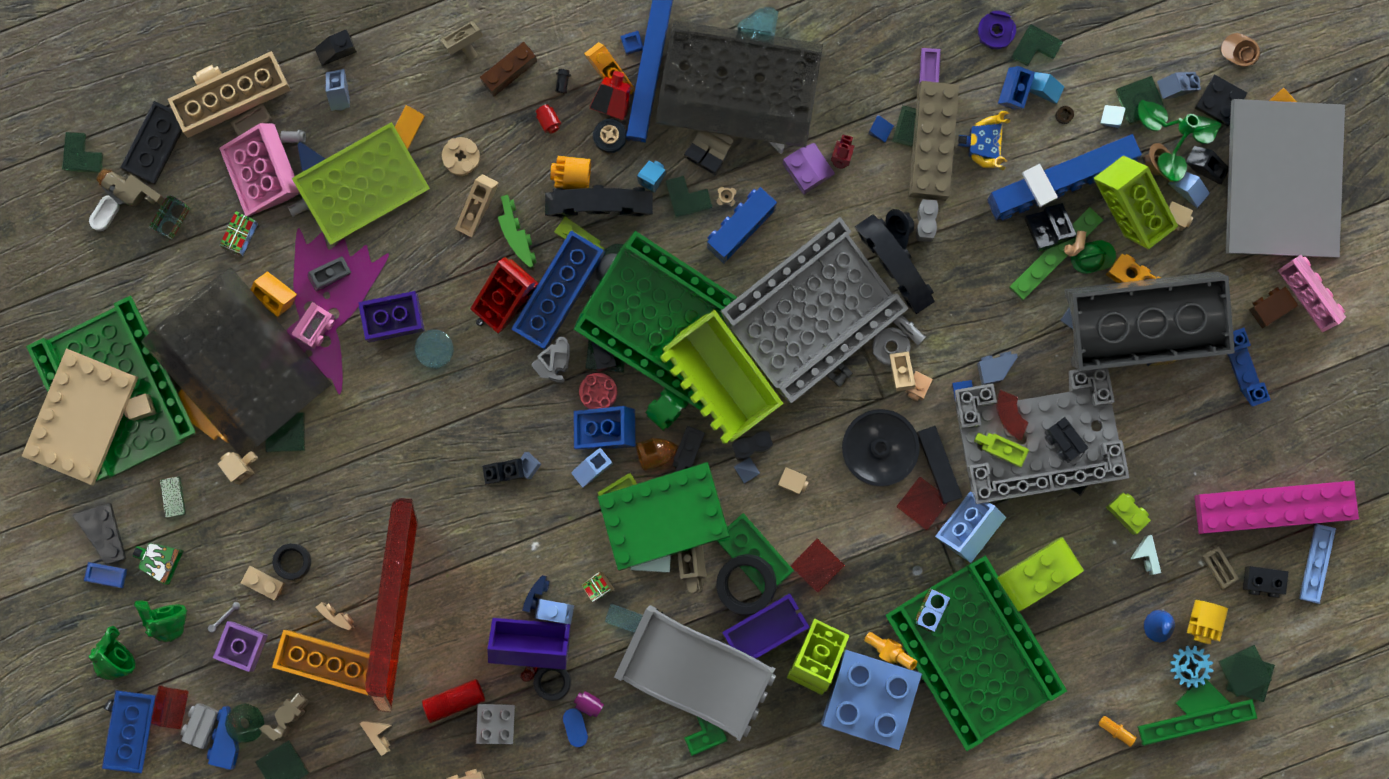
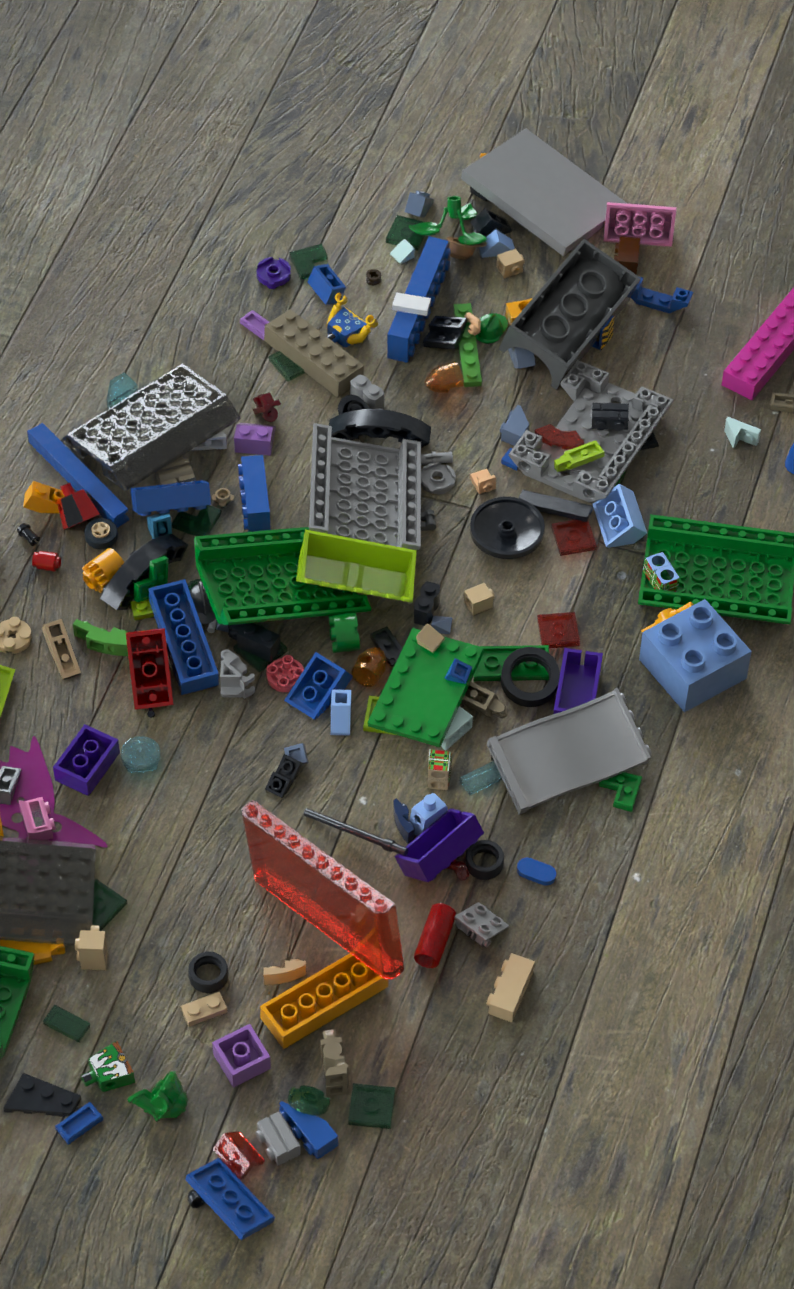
camera: 55 degrees left, 30 degrees down
(111, 657) = (154, 1166): green head -> none
(212, 628) = (203, 1074): light grey hinge -> none
(373, 731) = (407, 1013): tan slope -> none
(497, 605) = (387, 844): none -> black bar
(588, 704) = (526, 846): magenta brick -> none
(594, 223) = (157, 576): none -> green tile
(632, 42) = (48, 476): blue tile -> none
(677, 165) = (171, 496): none -> blue brick
(689, 535) = (458, 672): none -> blue slope
(701, 488) = (429, 638): none -> tan slope
(818, 657) = (635, 670): lime brick -> none
(881, 129) = (271, 379): blue slope -> none
(902, 371) = (463, 478): tan slope -> none
(997, 268) = (444, 378): none -> clear orange helmet
(1040, 574) = (695, 490): lime brick -> none
(1046, 87) = (345, 271): dark azure slope -> none
(1131, 516) = (698, 423): lime brick -> none
(1136, 202) = (478, 263): lime brick -> none
(1217, 99) = (453, 187): black plate -> none
(1240, 50) = (430, 159): medium nougat cap -> none

